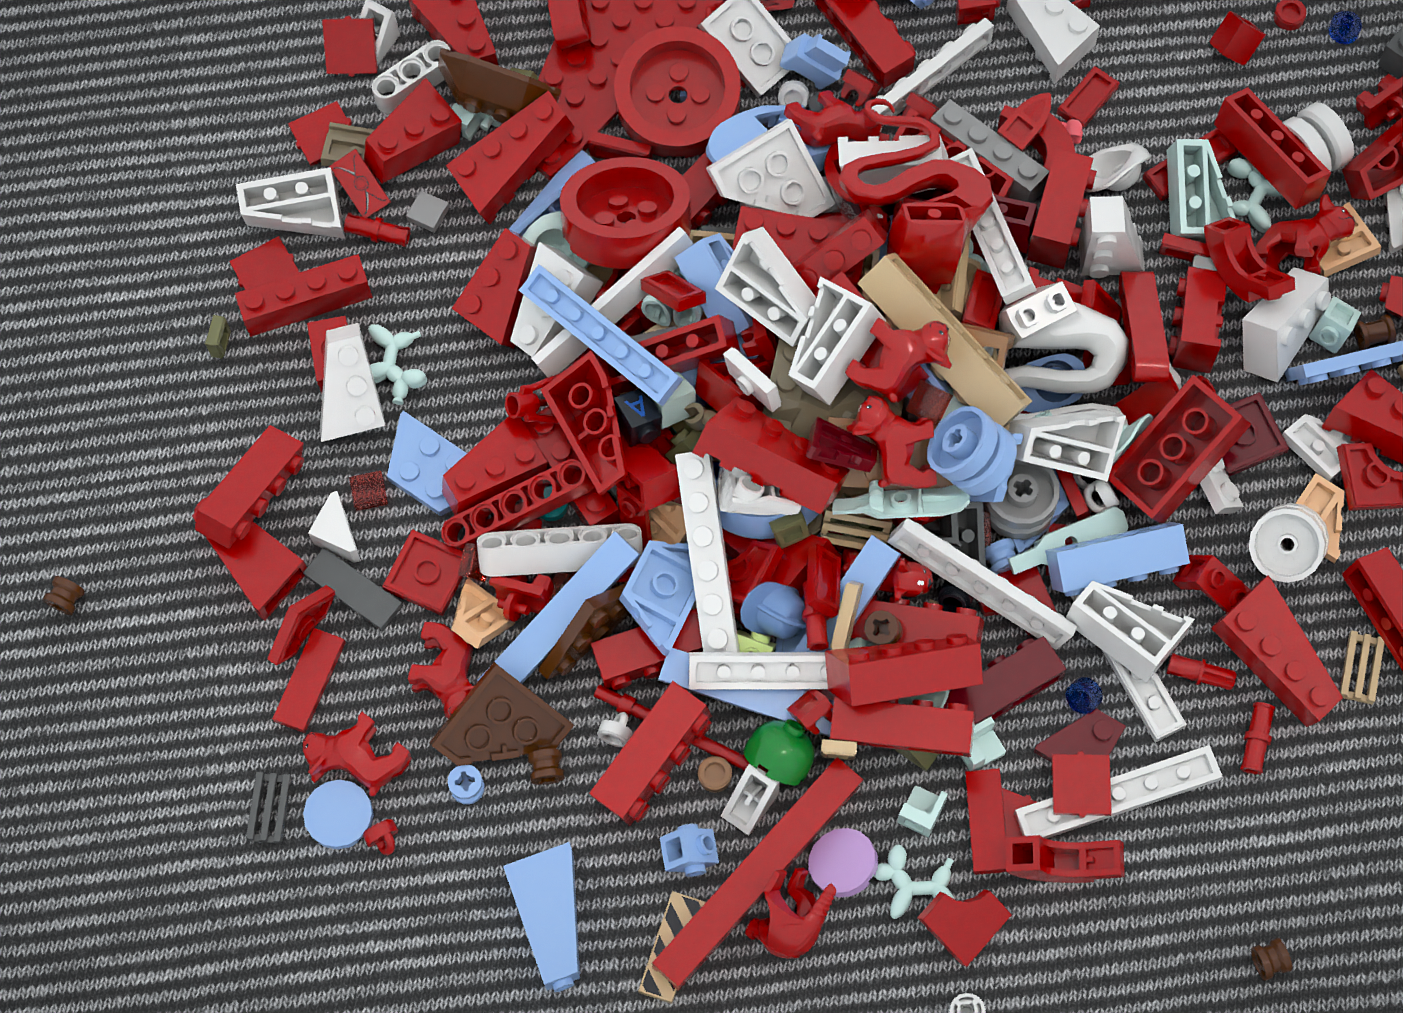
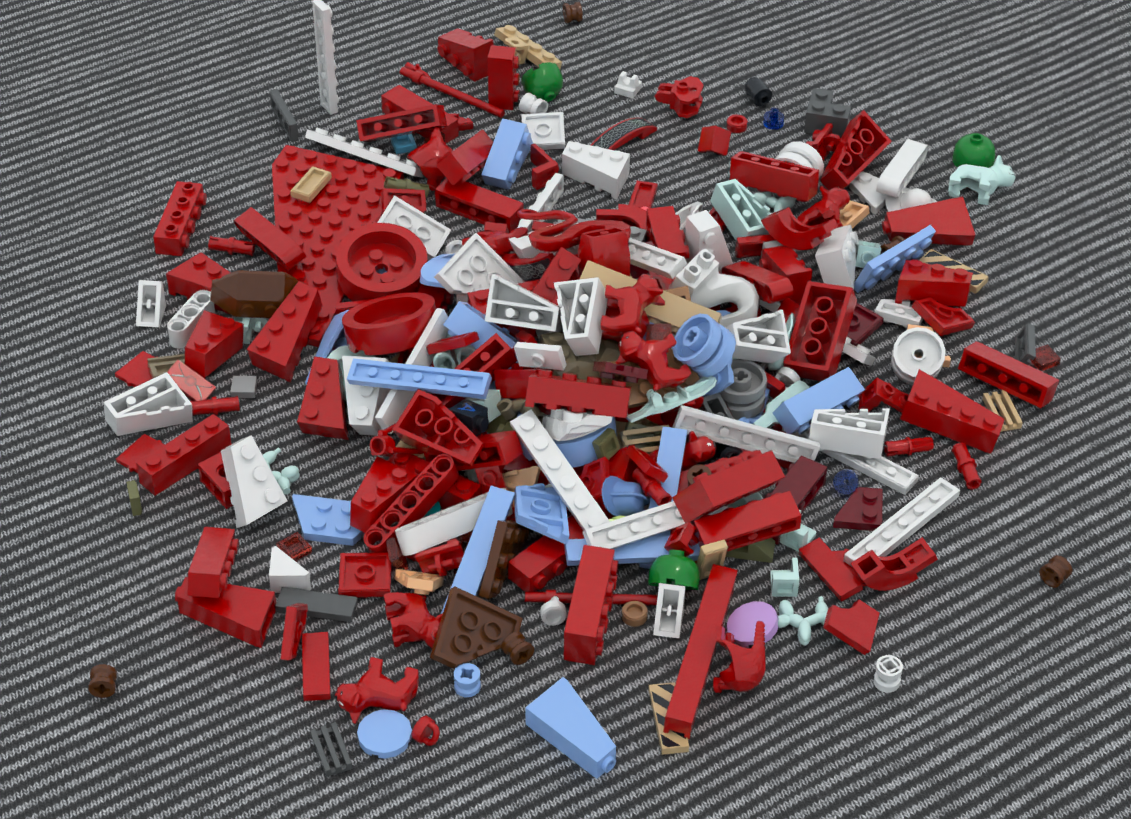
camera: 30 degrees left, 25 degrees down
(350, 46) = (137, 315): red piece -> none
(689, 850) = (647, 653): light blue brick -> none
(815, 59) = (461, 221): light blue piece -> none
(847, 615) = (673, 472): tan tile -> none
(1026, 121) = (617, 207): red plate -> none
(1081, 784) = (877, 524): red piece -> none

